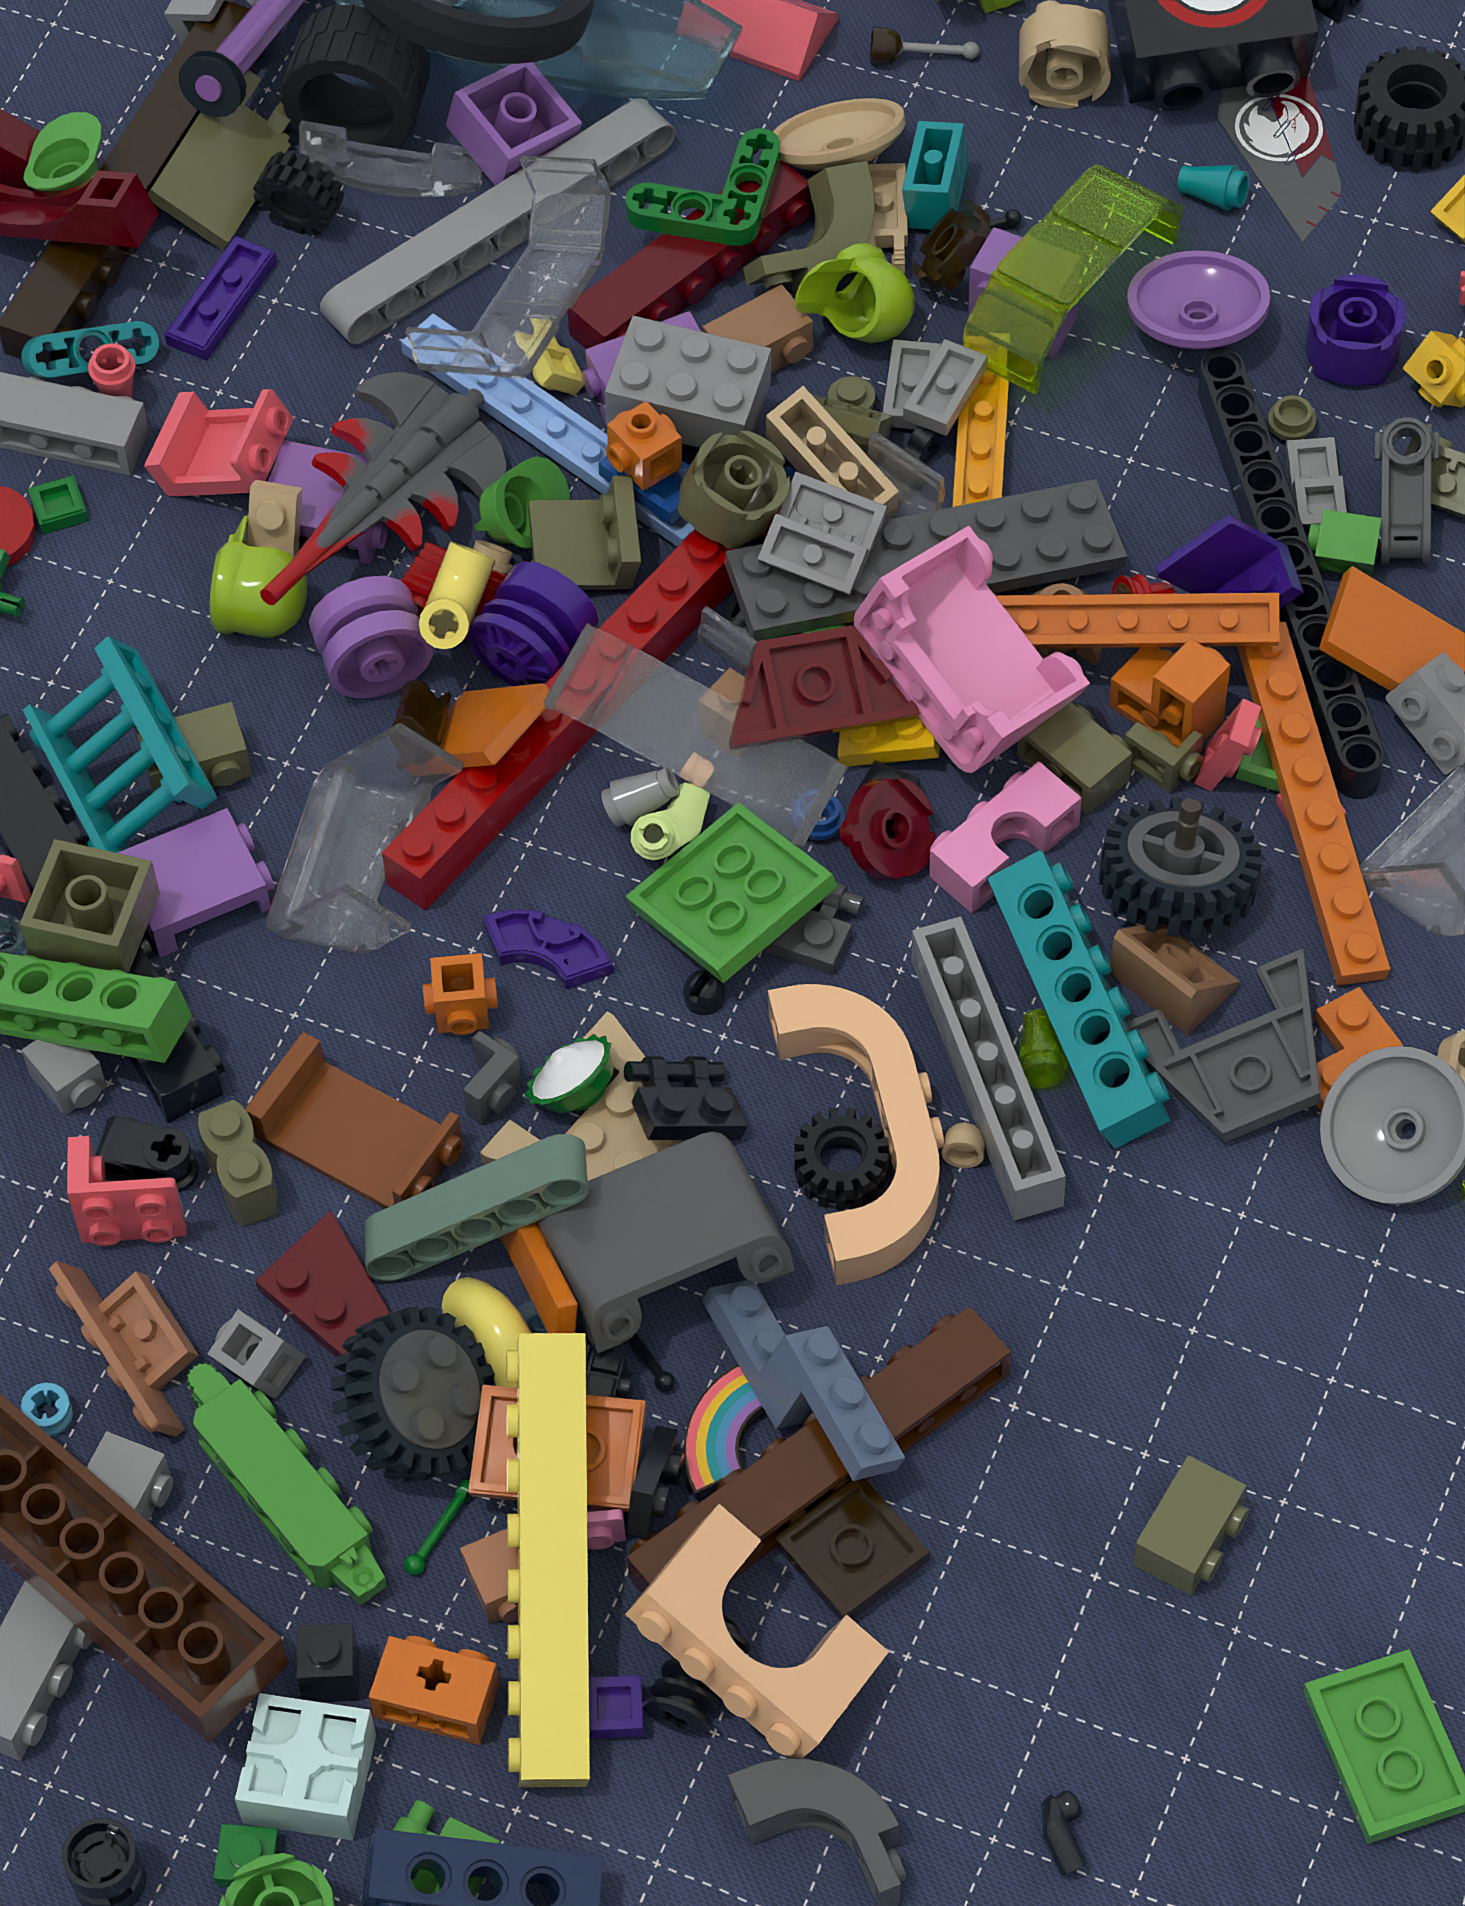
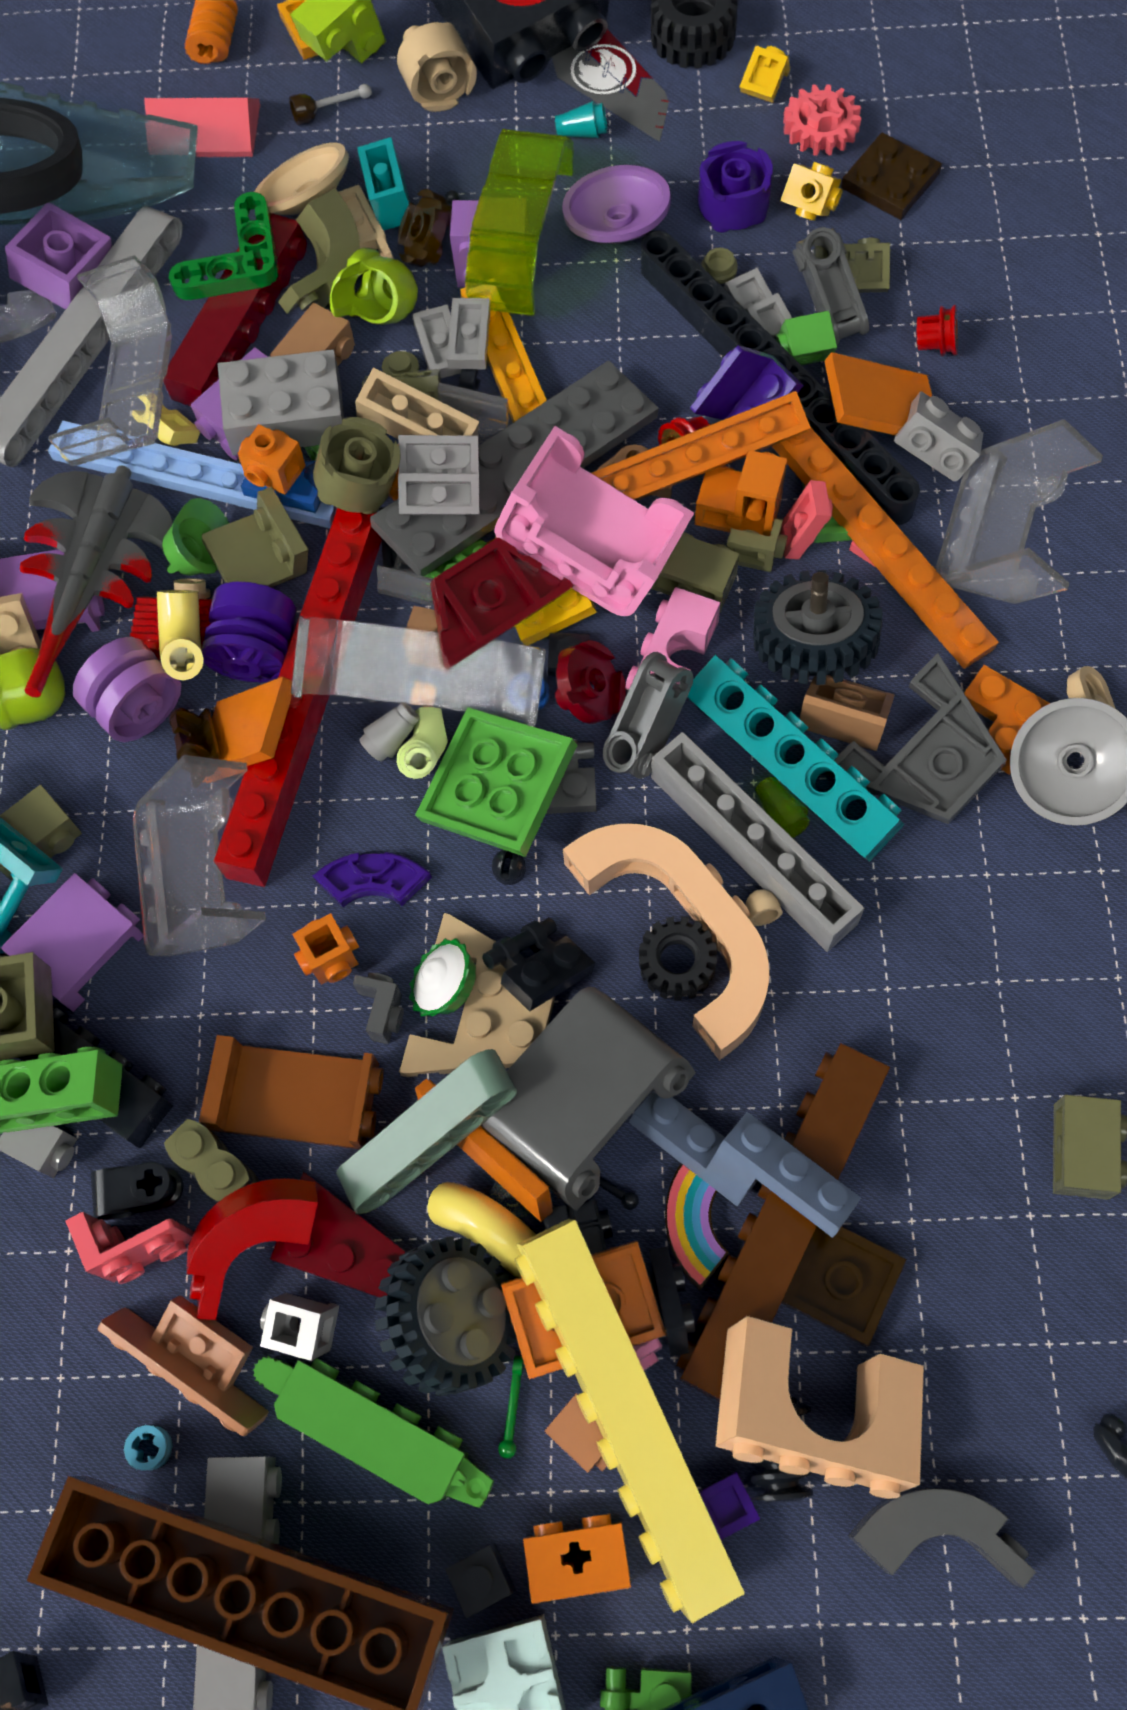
camera: 20 degrees left, 10 degrees up
(252, 1215) = (249, 1216): none -> red arch
(930, 884) = (647, 716): none -> dark grey piece

